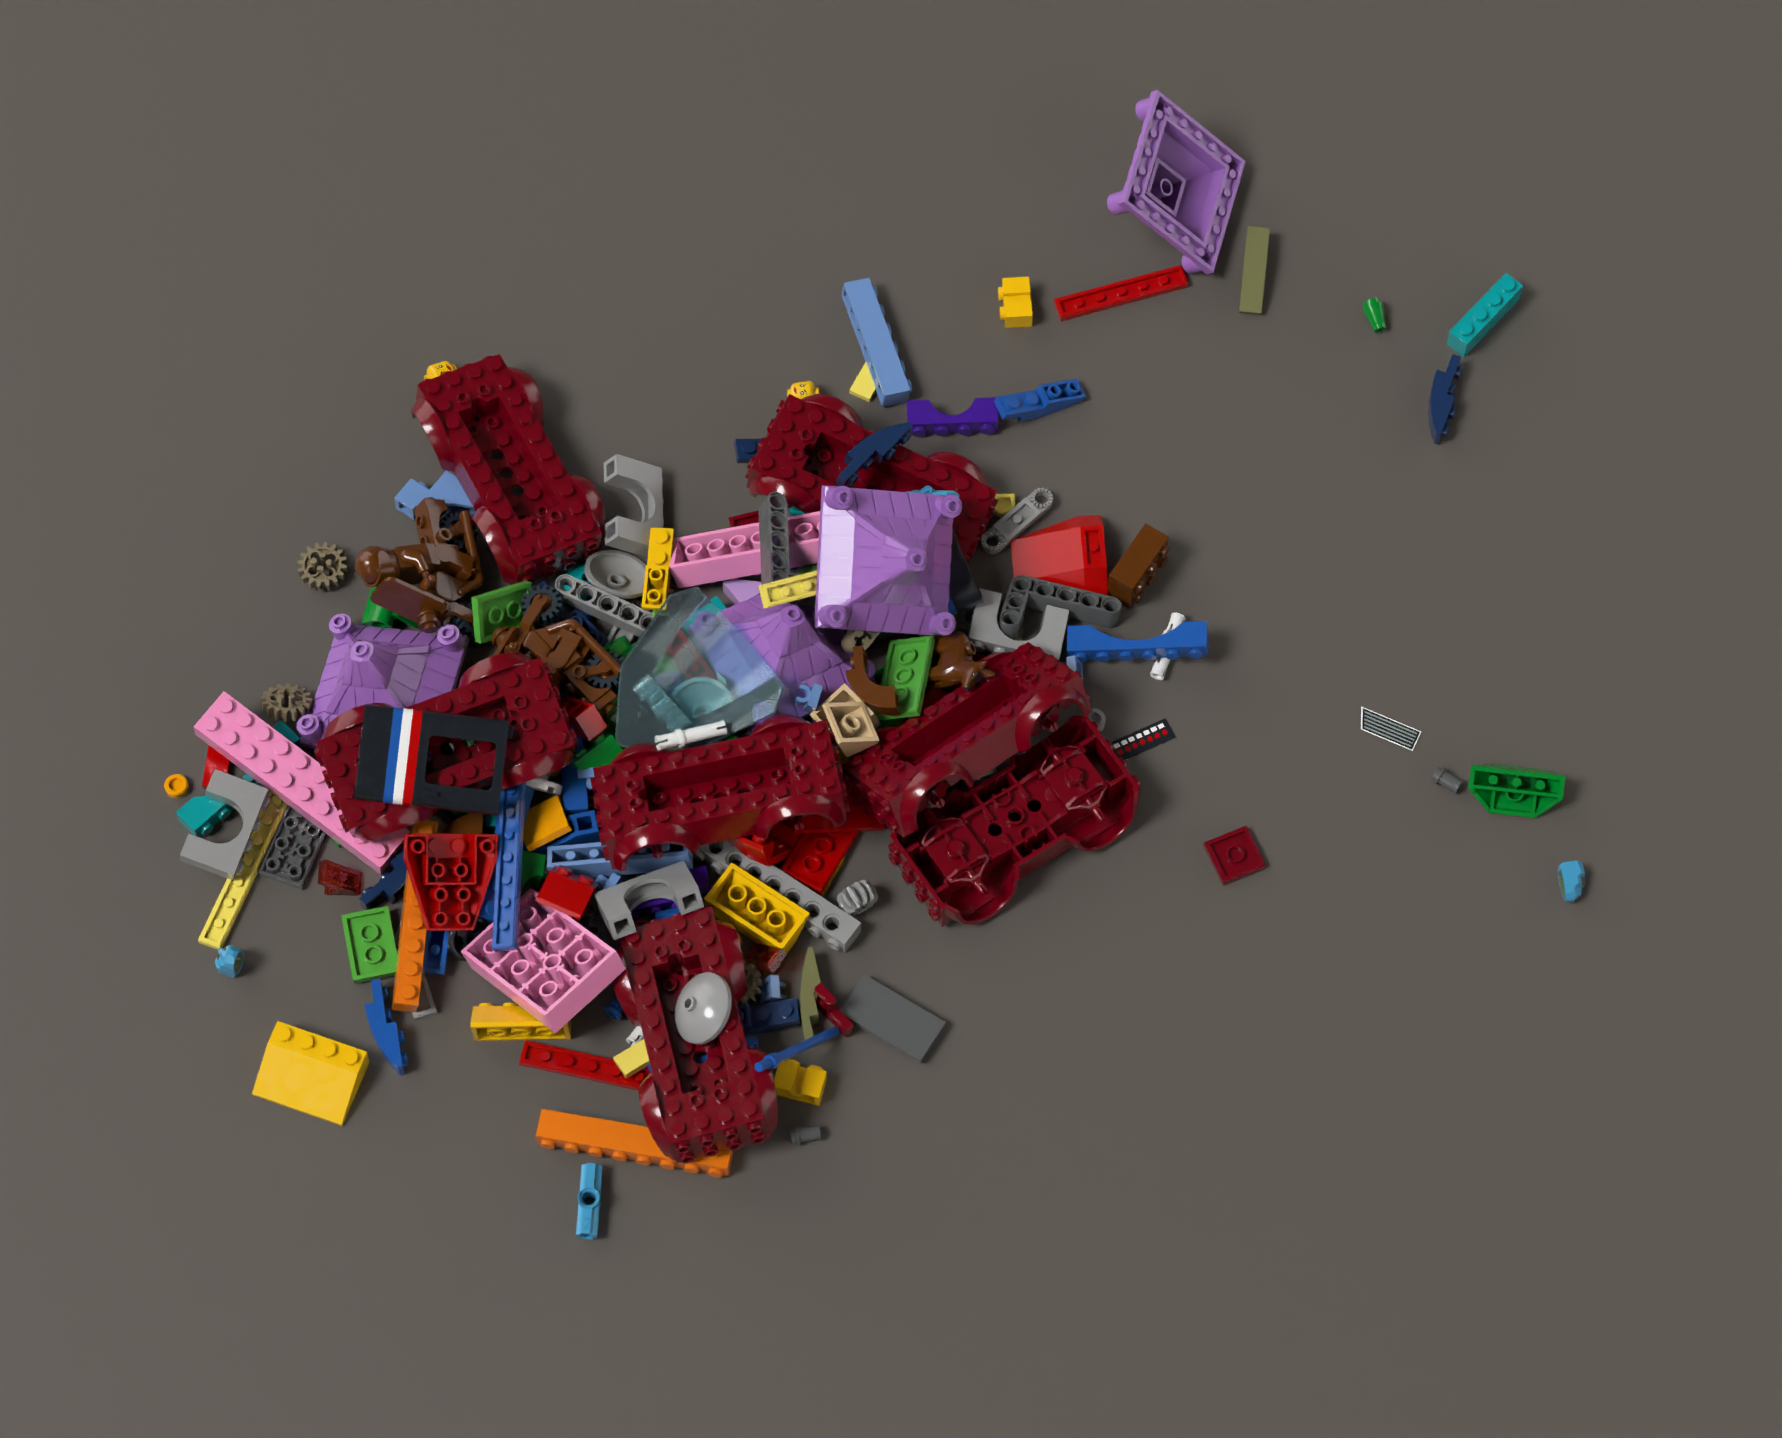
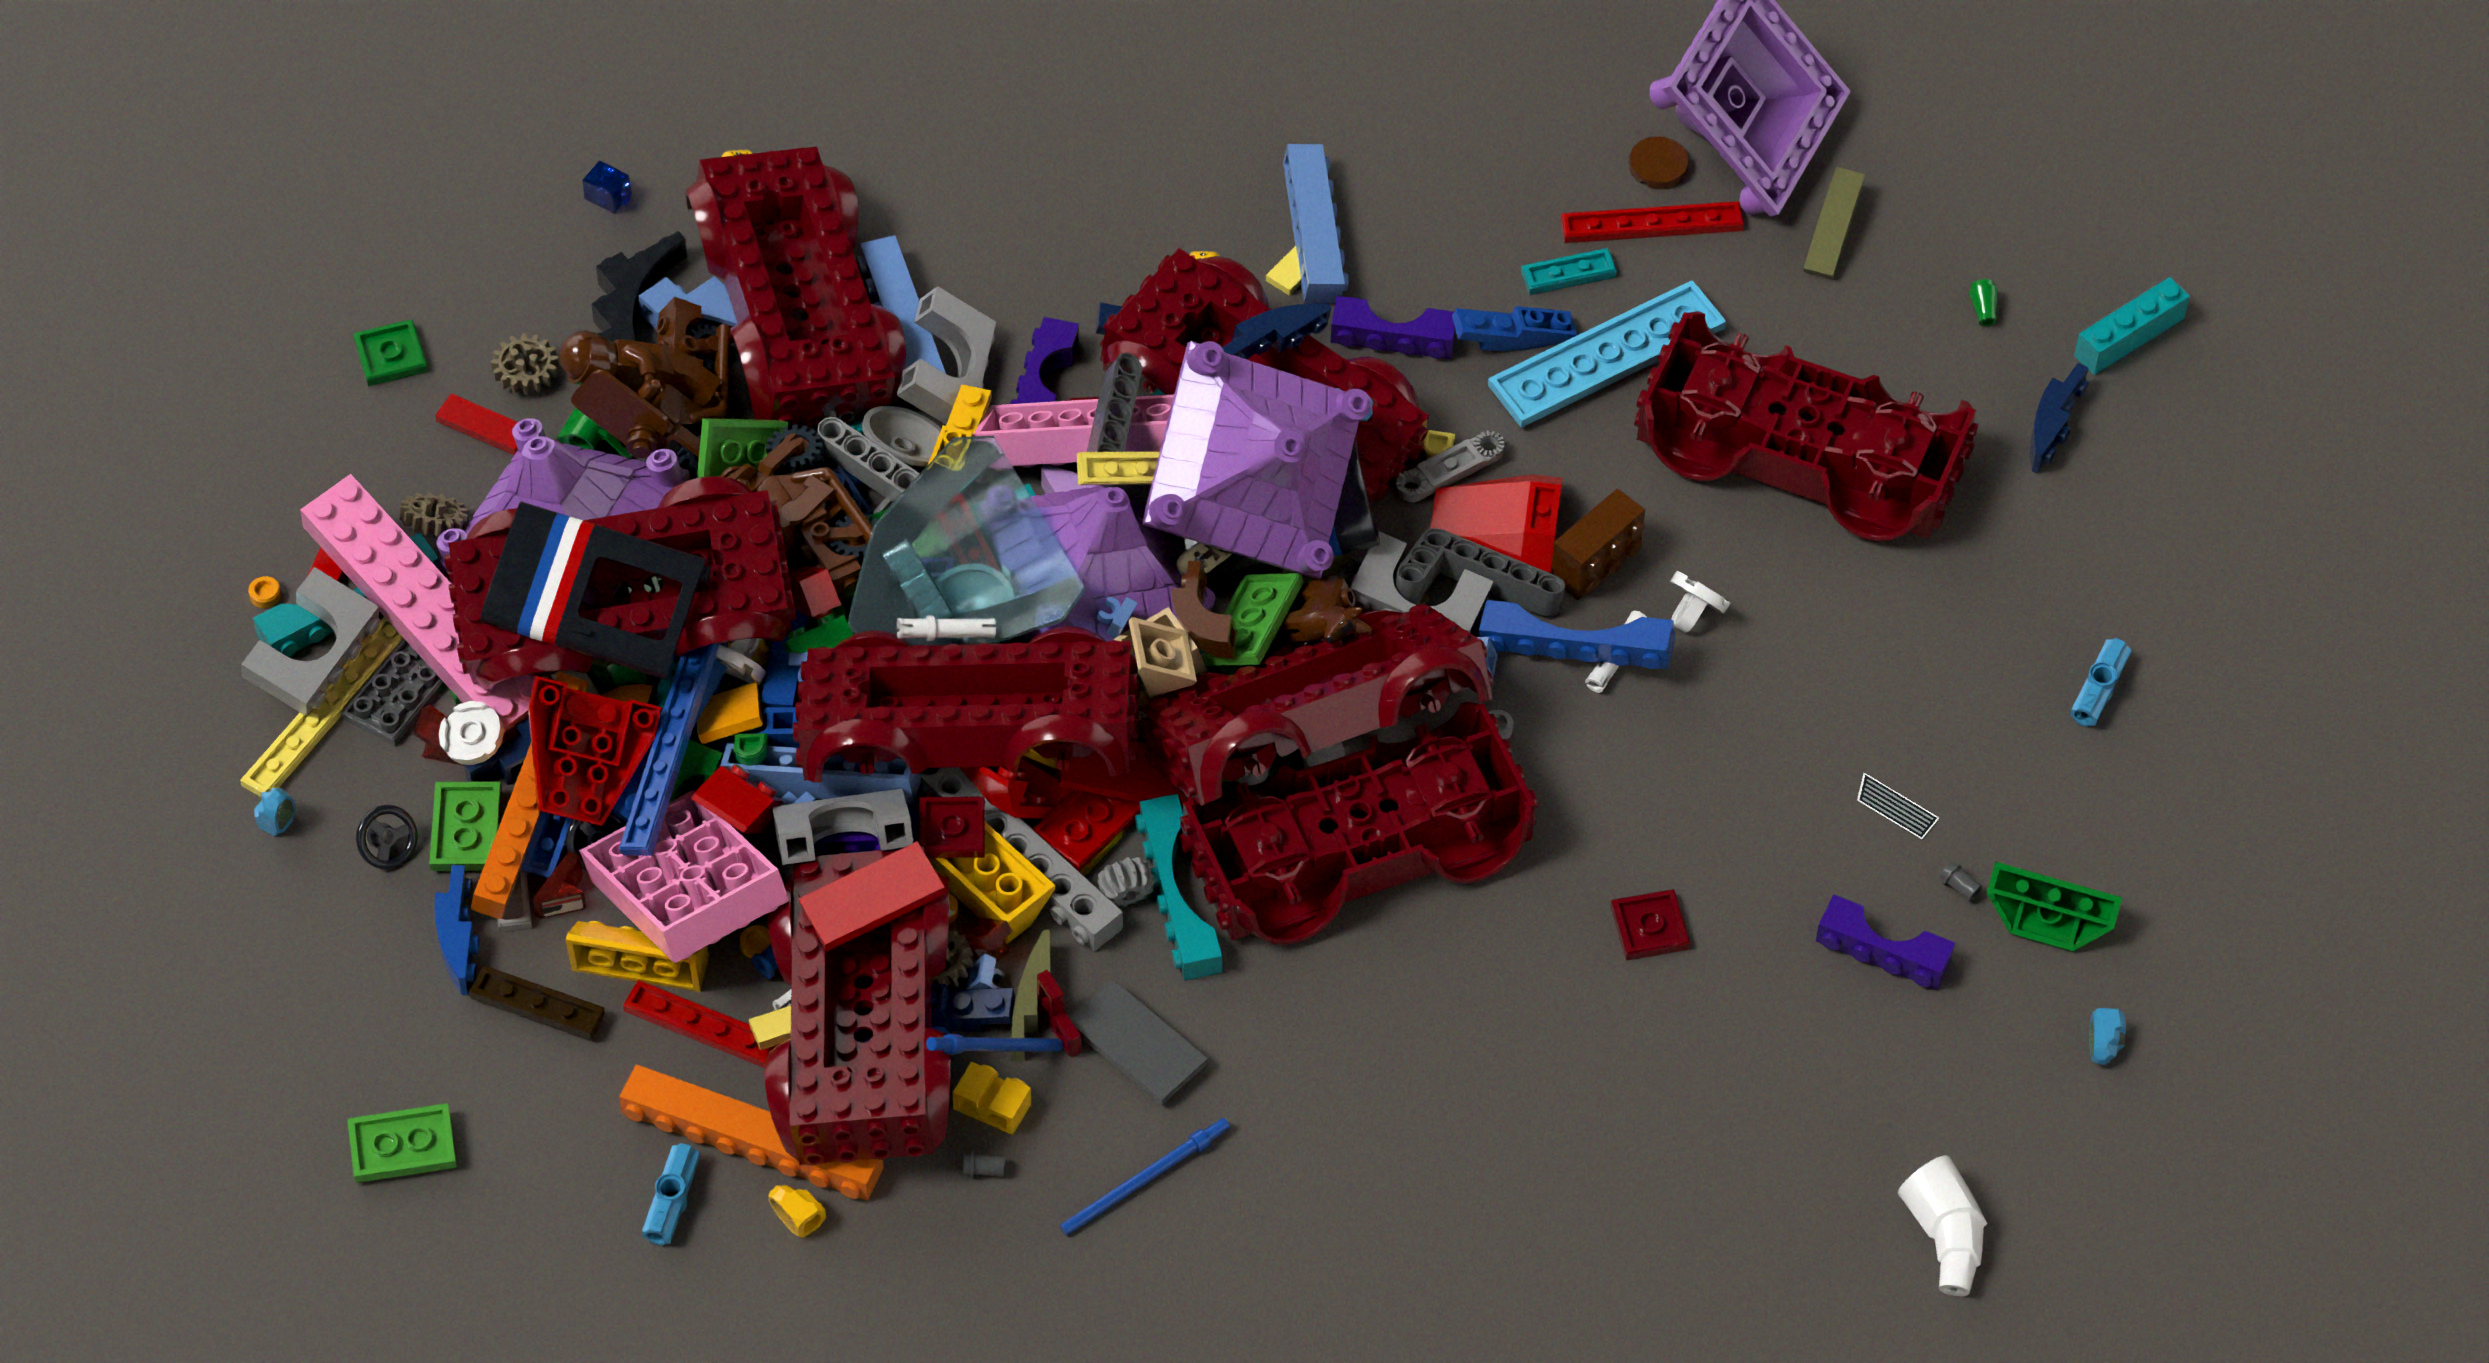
camera: 10 degrees right, 10 degrees down
(219, 574) = (390, 352): none -> green tile
(300, 619) = (478, 423): none -> red tile
(306, 963) = (375, 832): none -> black piece
(310, 1073) = (343, 967): yellow slope -> none
(347, 409) = (607, 187): none -> clear blue brick
(360, 875) = (471, 733): none -> white tile
(382, 486) = (627, 279): none -> black arch
(387, 1199) = (401, 1143): none -> bright green plate
(451, 984) = (560, 891): none -> clear red slope
(457, 1072) = (537, 1002): none -> dark brown plate
(566, 849) = (751, 748): none -> green tile
(583, 461) = (893, 289): none -> medium blue brick
(604, 996) = (754, 940): none -> light orange tile
(681, 1194) = (797, 1209): none -> yellow rock
(685, 954) = (872, 896): none -> tile
(703, 1008) = (879, 968): light grey dish -> none
(708, 480) = (1053, 348): none -> dark purple arch
(726, 882) = (952, 826): none -> dark red tile
(916, 933) = (1194, 940): none -> teal arch
(951, 1086) = (1196, 1142): none -> blue bar
(1016, 302) = (1510, 208): yellow brick -> none
(1068, 345) = (1568, 271): none -> teal tile
(1110, 408) = (1598, 355): none -> medium azure plate
(1115, 242) = (1658, 162): none -> reddish brown tile
(1143, 739) = (1559, 761): black sticker -> none
(1215, 598) = (1694, 602): none -> white tile
(1329, 475) = (1878, 477): none -> dark red piece
(1430, 847) = (1918, 959): none -> dark purple arch
(1493, 1043) = (1951, 1217): none -> white piece
(1519, 594) = (2096, 694): none -> dark azure piece

